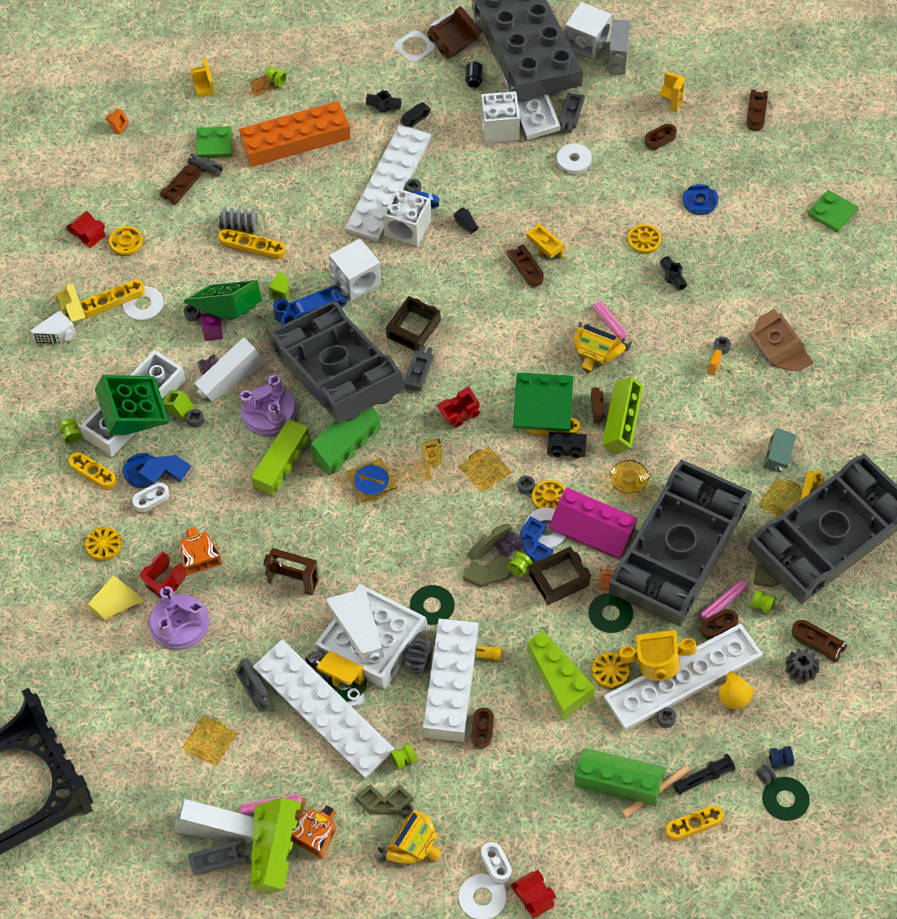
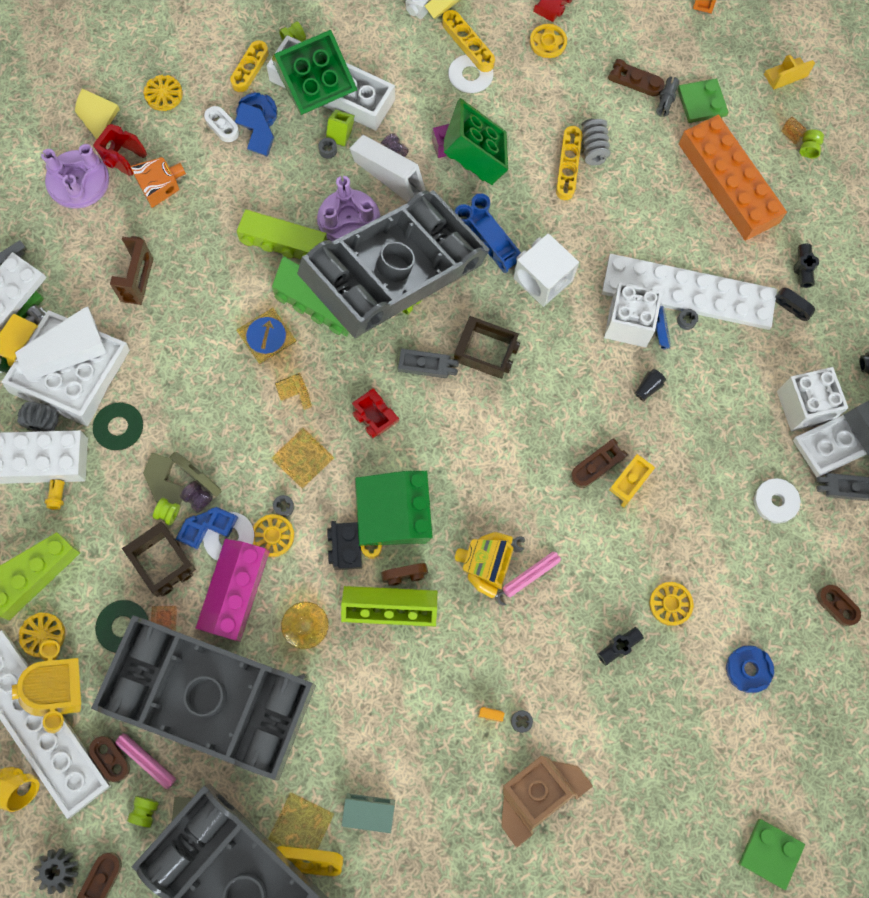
camera: 75 degrees right, 15 degrees up
(279, 287) = (511, 200): lime brick -> none

